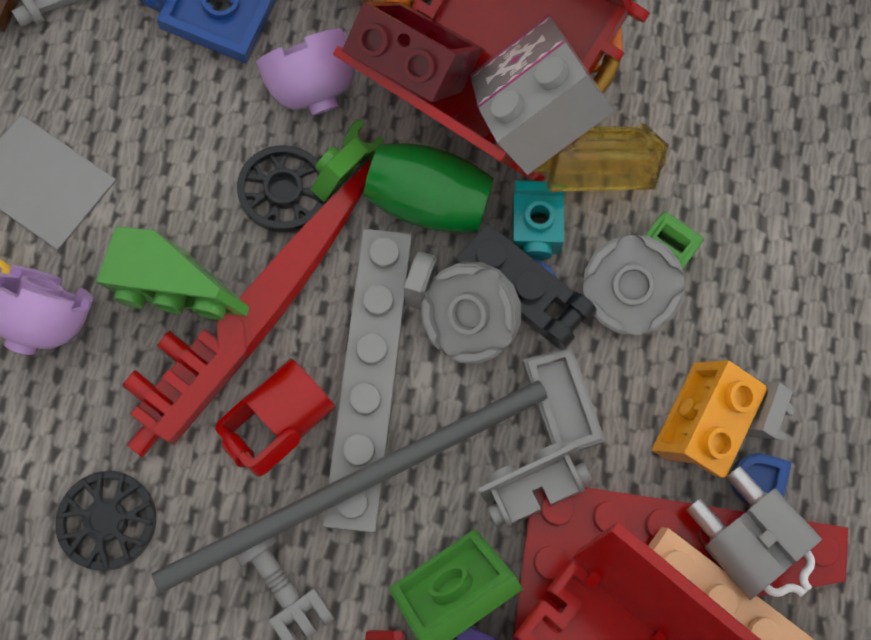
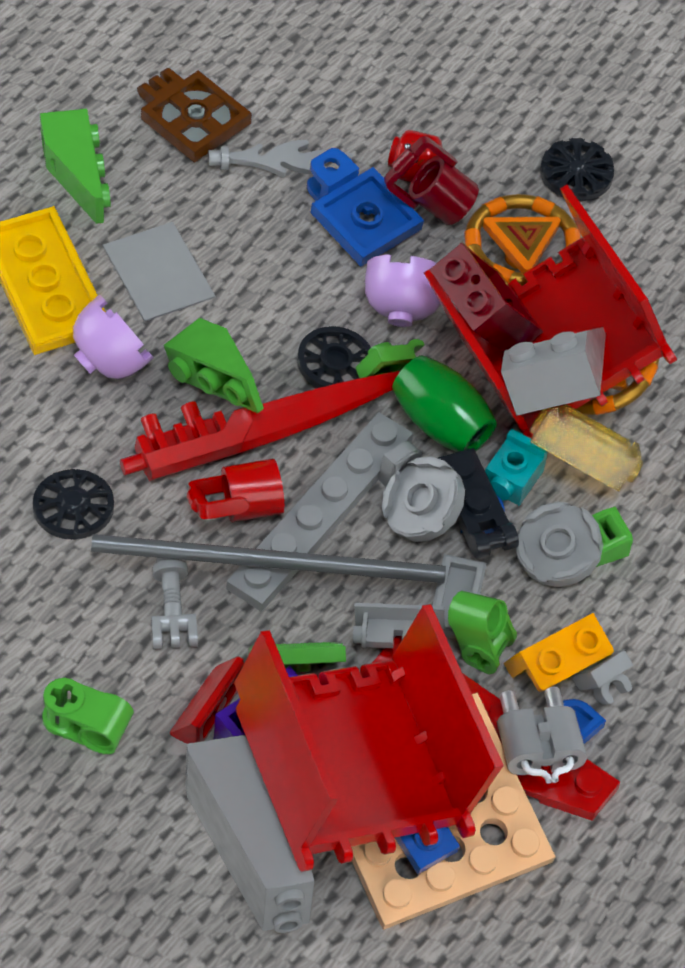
camera: 25 degrees right, 20 degrees down
(620, 440) = (481, 629): none -> bright green piece

